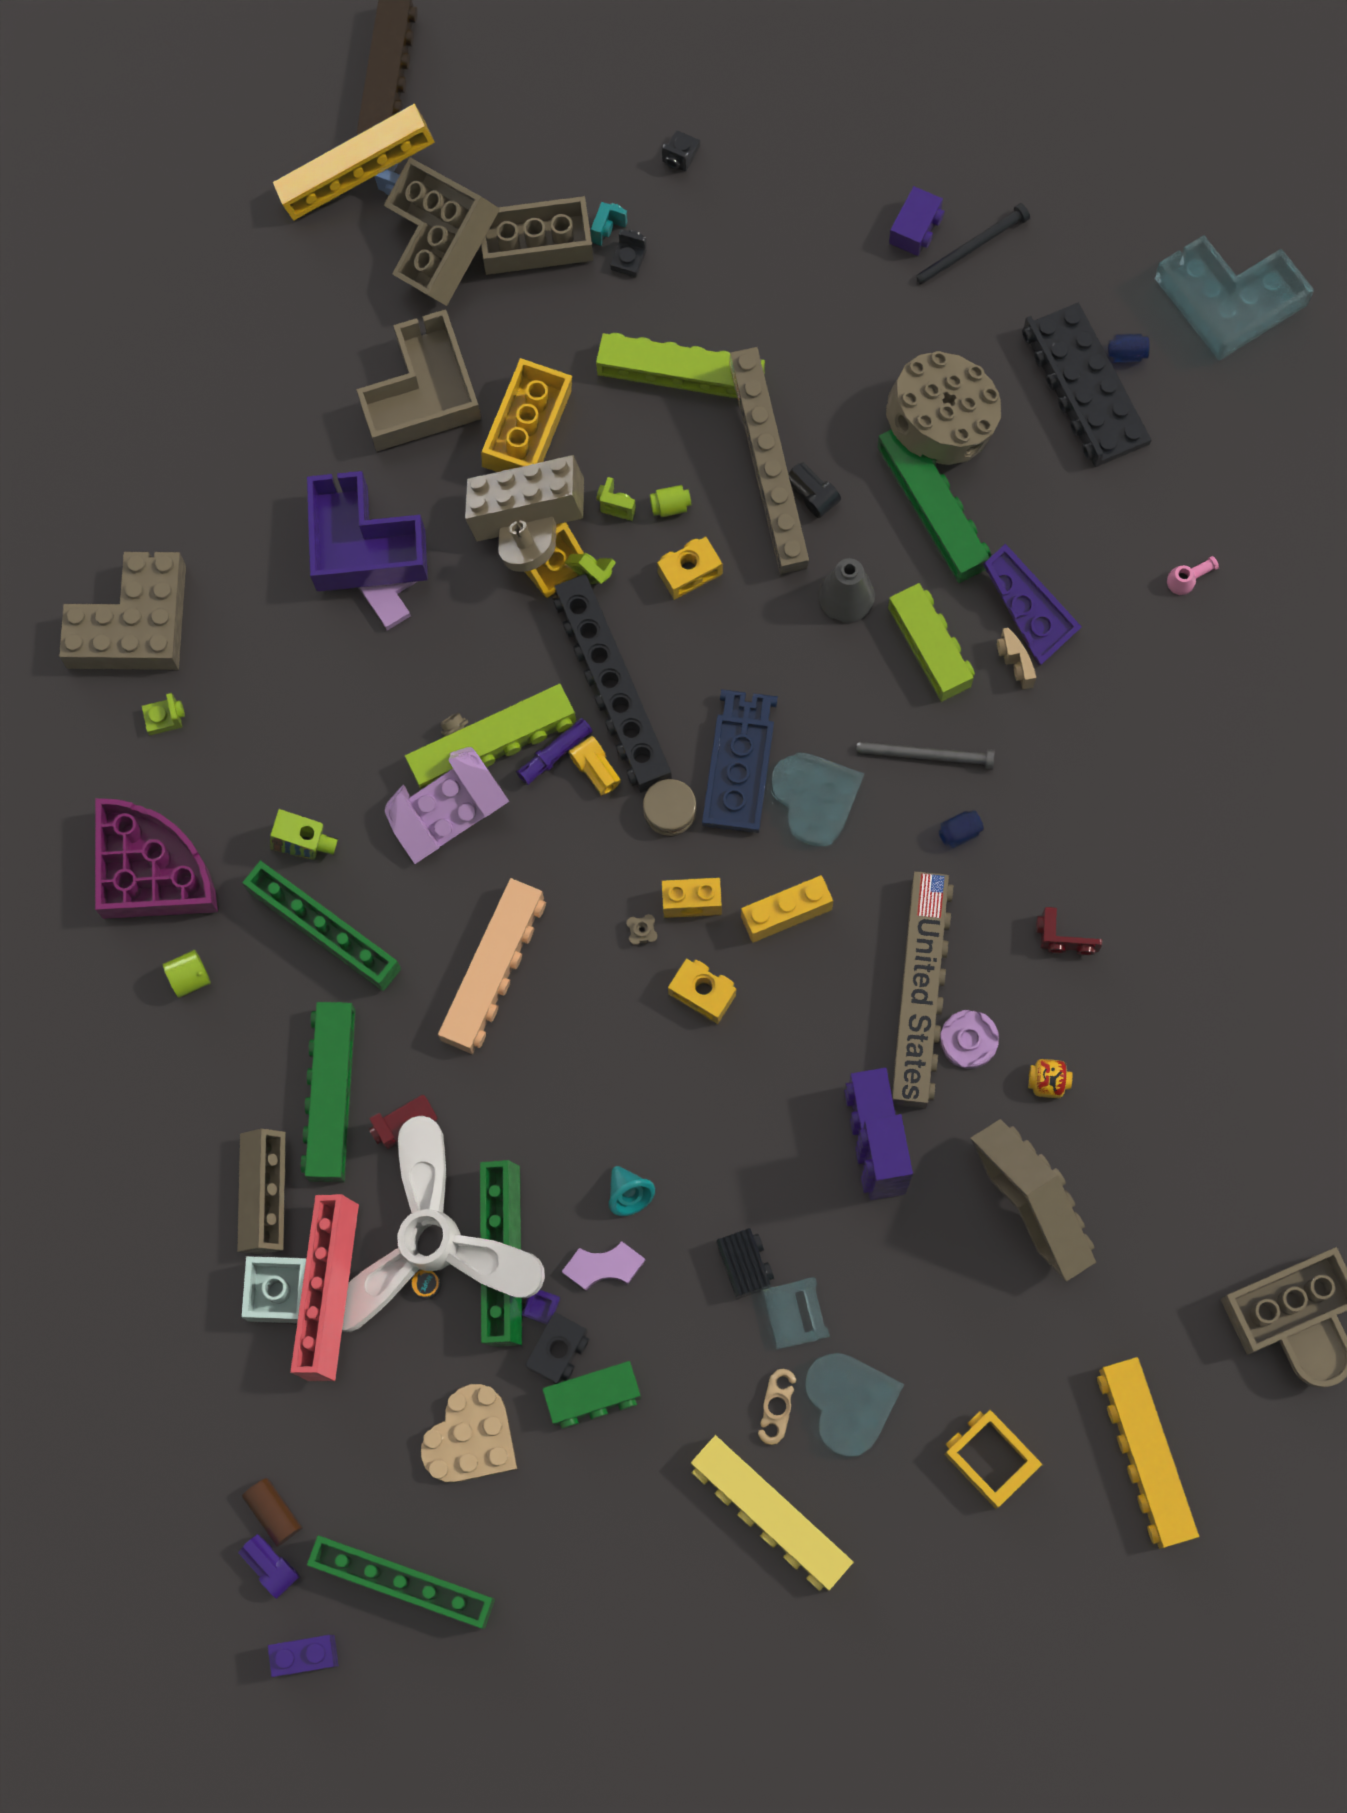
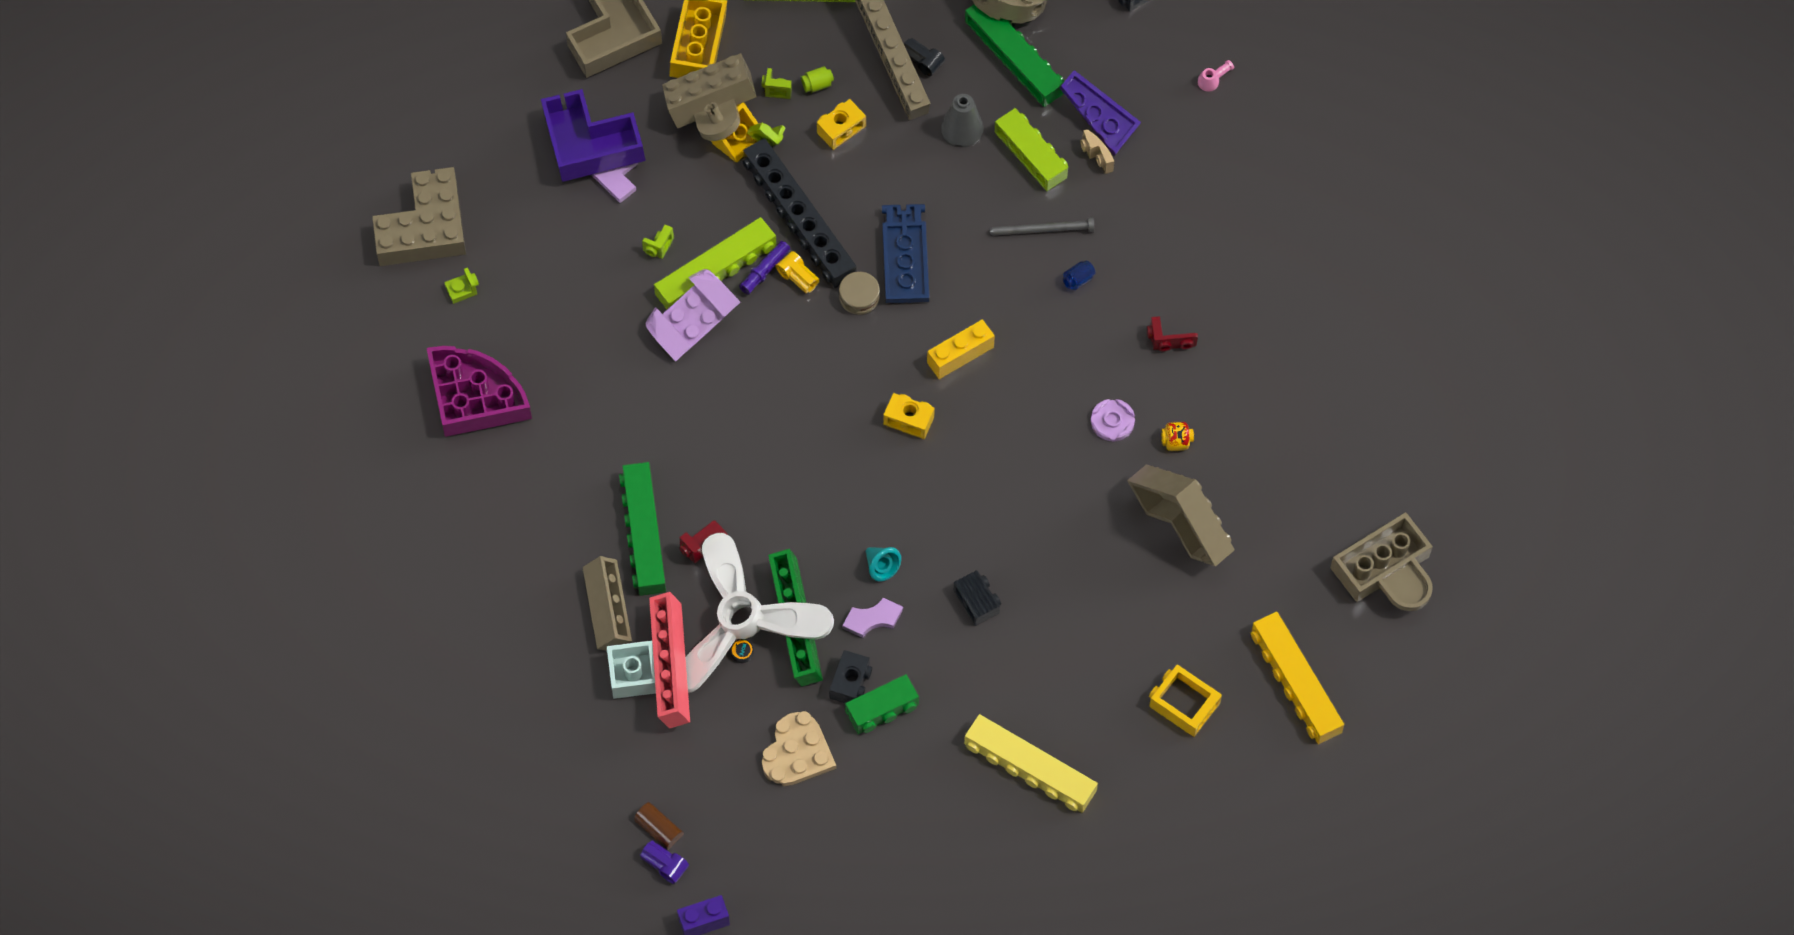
camera: 15 degrees left, 10 degrees down
(186, 973) = (518, 463): lime piece -> none
(289, 834) = (585, 353): lime torso -> none
(322, 926) = (615, 413): green brick -> none
(401, 1582) = (766, 853): green brick -> none
(428, 697) = (660, 244): none -> lime bracket
(452, 724) = (684, 258): dark tan plate -> none
(491, 966) = (748, 422): light nougat brick -> none
(541, 1307) = (831, 652): dark purple tile -> none
(648, 935) = (859, 385): dark tan plate -> none
(691, 897) = (888, 352): yellow brick -> none
(779, 1421) = (1018, 683): tan piece -> none
(785, 1314) = (1015, 630): clear light blue plate -> none
(817, 795) = (967, 268): clear light blue plate -> none
(852, 1402) = (1074, 678): clear light blue plate -> none
(880, 1135) = (1062, 490): dark purple piece -> none
(920, 990) = (1070, 390): dark tan brick -> none

